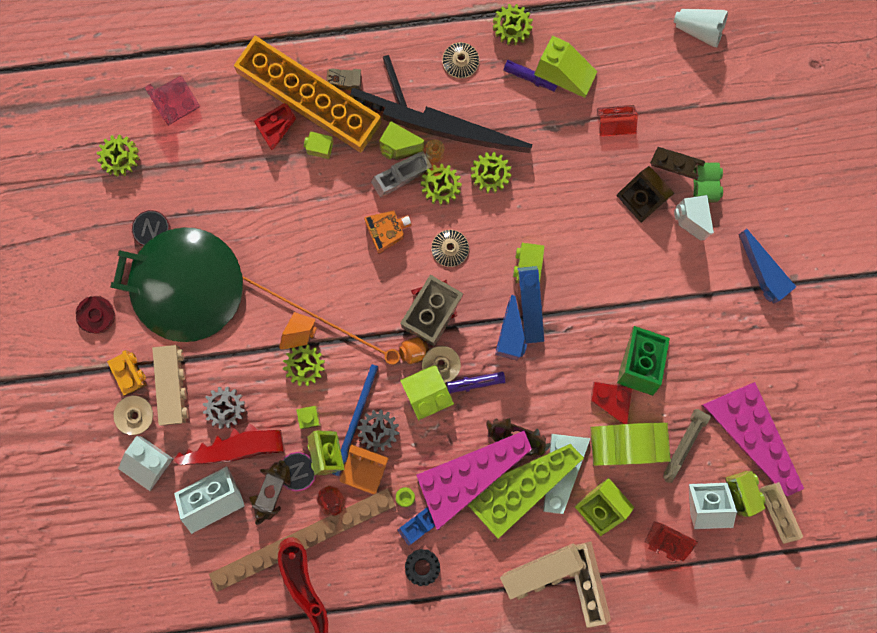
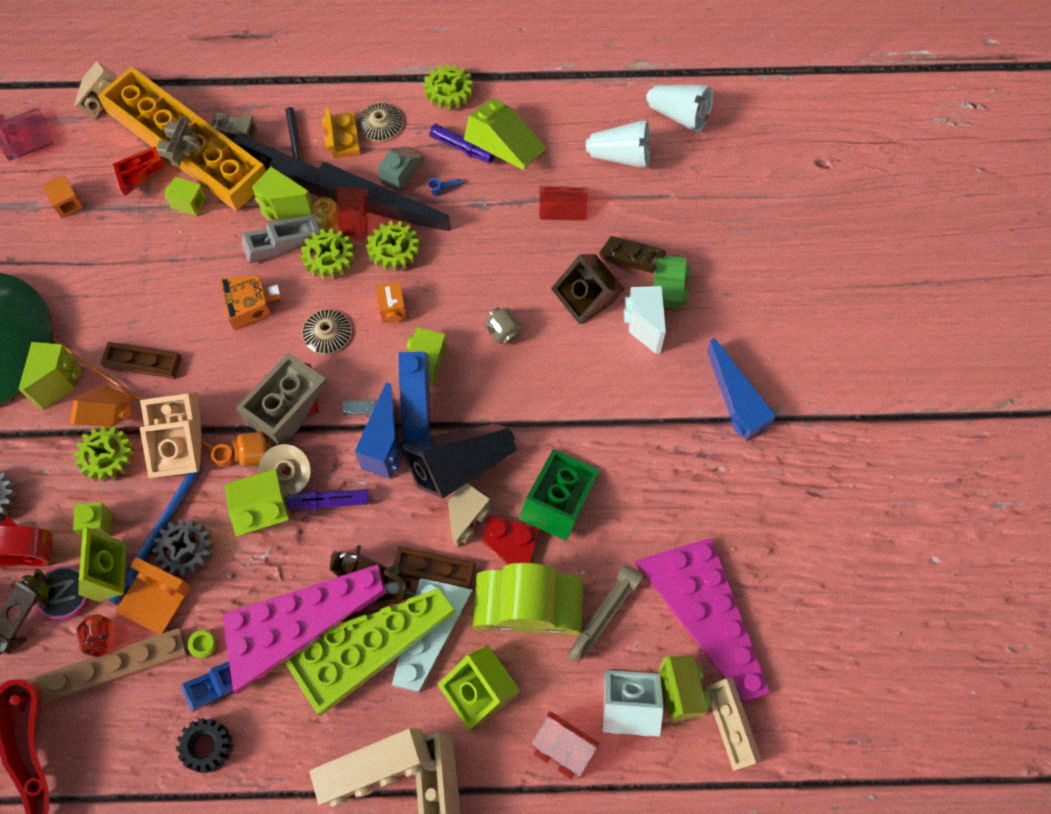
camera: 15 degrees right, 15 degrees down
(221, 154) = (62, 196): none -> orange brick
(225, 54) = (92, 84): none -> tan slope
(251, 308) = (48, 374): none -> lime slope
(311, 96) = (182, 141): none -> dark tan hips
(313, 286) = (141, 360): none -> reddish brown tile
(352, 345) = (171, 434): none -> light nougat slope
(433, 75) = (342, 134): none -> light orange bracket
(456, 148) = (353, 211): none -> clear red panel
(485, 101) = (399, 167): none -> sand green slope
(486, 308) = (359, 407): none -> clear light blue pin
(497, 221) = (391, 302): none -> orange brick
(520, 114) = (441, 186): none -> blue hand
(560, 424) = (435, 567): none -> reddish brown tile
(567, 344) = (454, 458): none -> black slope
(577, 381) = (466, 510): none -> tan slope
(585, 231) = (503, 325): none -> dark tan head
(659, 67) = (622, 144): none -> light aqua cone

